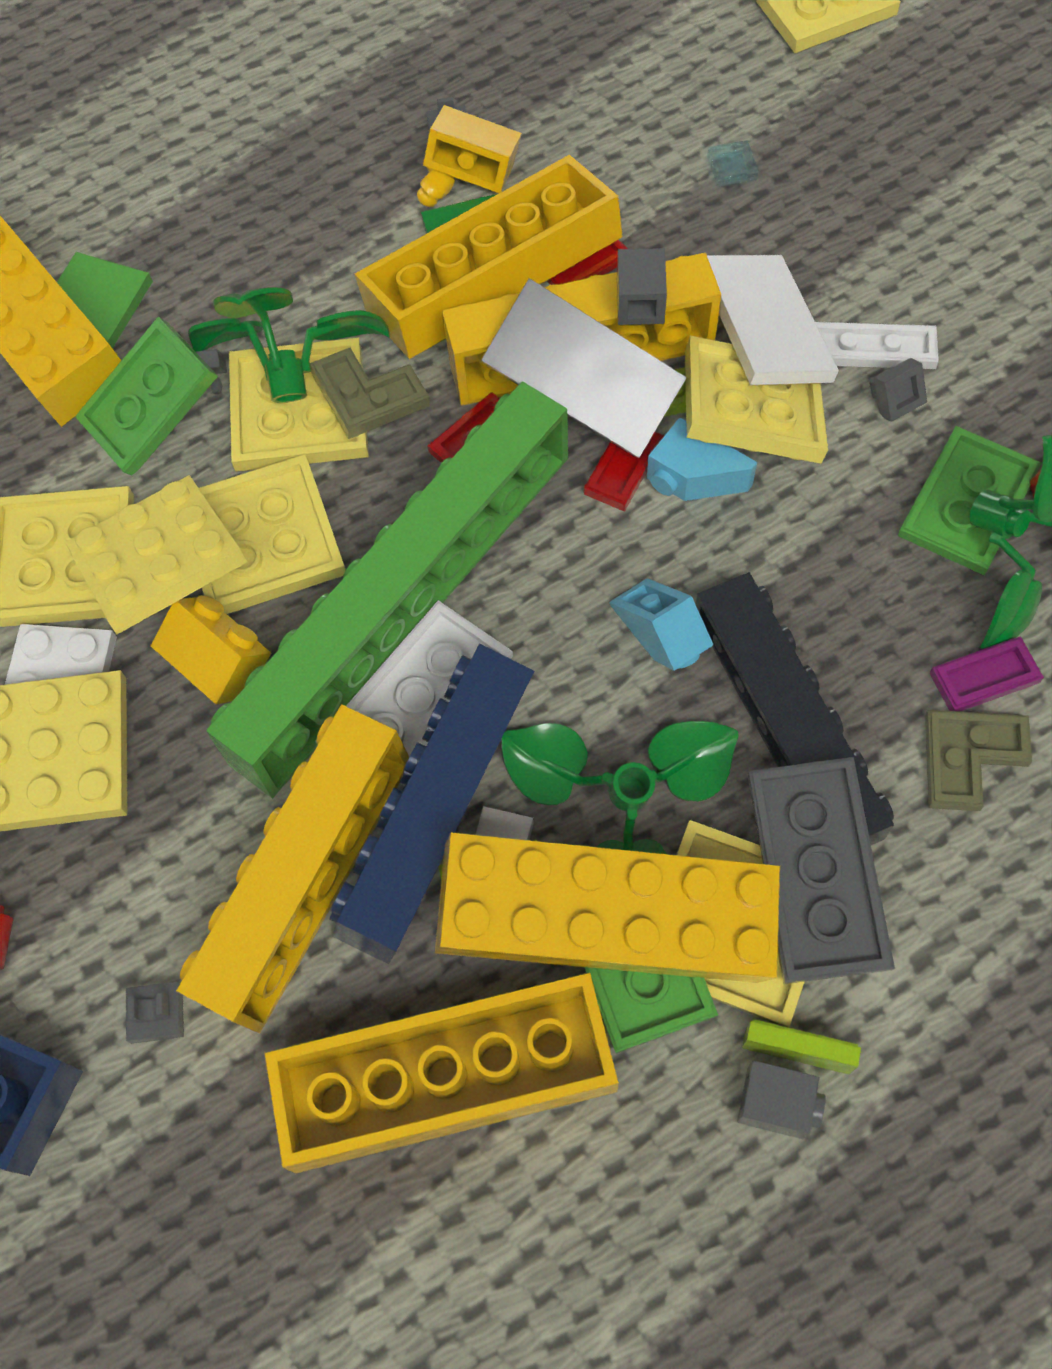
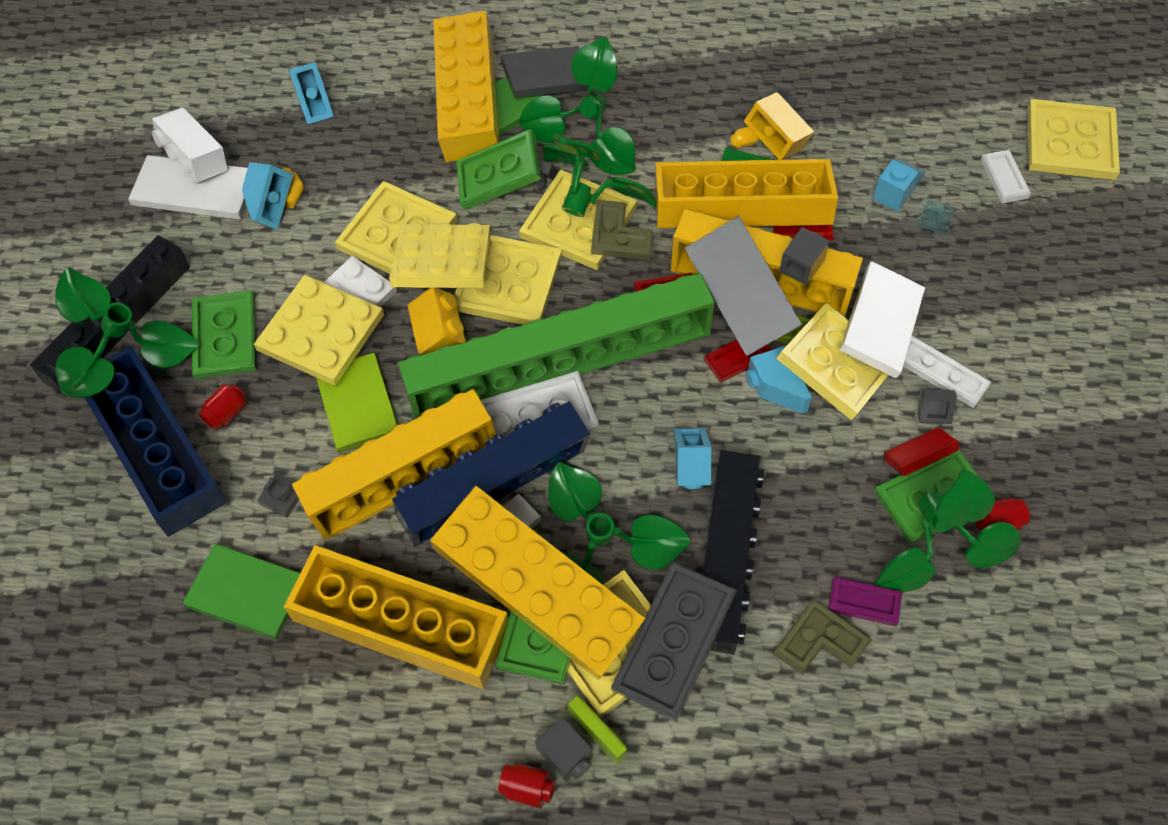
camera: 30 degrees right, 5 degrees down
(116, 234) = (541, 72): none -> dark grey tile
(176, 822) = (358, 405): none -> lime tile
(198, 1178) = (242, 591): none -> bright green tile
(201, 186) = (597, 68): none -> green plant
(662, 148) = (897, 184): none -> medium azure slope
(765, 1178) = (526, 785): none -> red brick
(774, 74) = (1005, 176): none -> white tile
(921, 454) = (921, 451): none -> red tile

